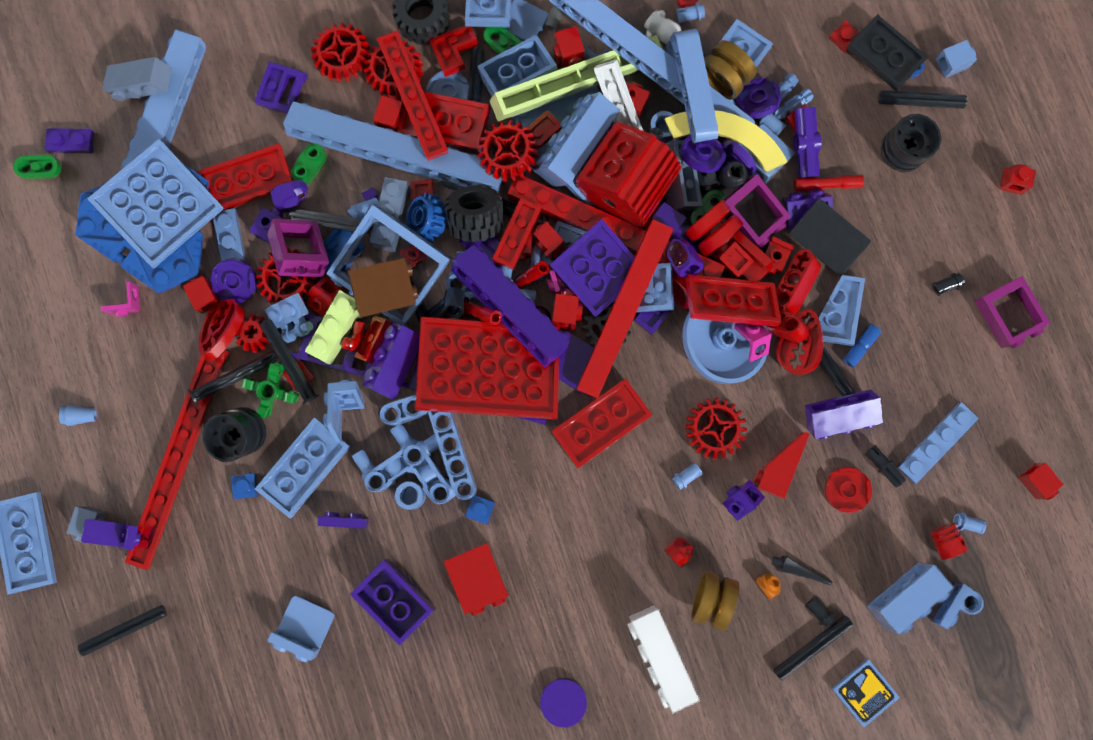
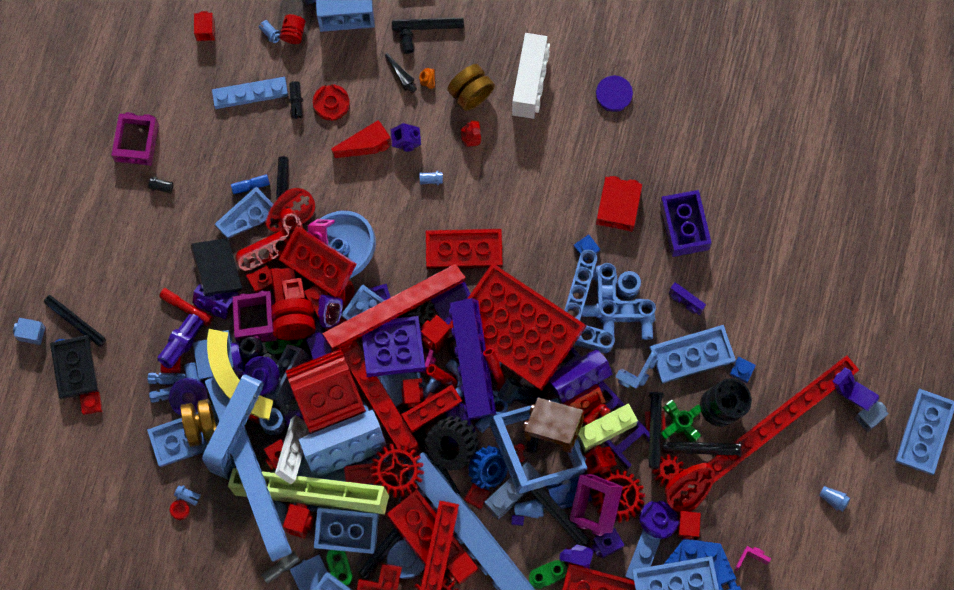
camera: 150 degrees left, 10 degrees down
(122, 630) = (888, 327): black axle -> none
(287, 311) = (634, 466): medium blue plate -> none
(302, 629) = (760, 247): medium blue bracket -> none
(660, 26) = (215, 496): white animal -> none
(718, 438) = (402, 201): red gear -> none
(843, 414) = (298, 147): brick -> none
(910, 143) = (104, 284): black wheel -> none
(1017, 175) = (58, 221): red brick -> none

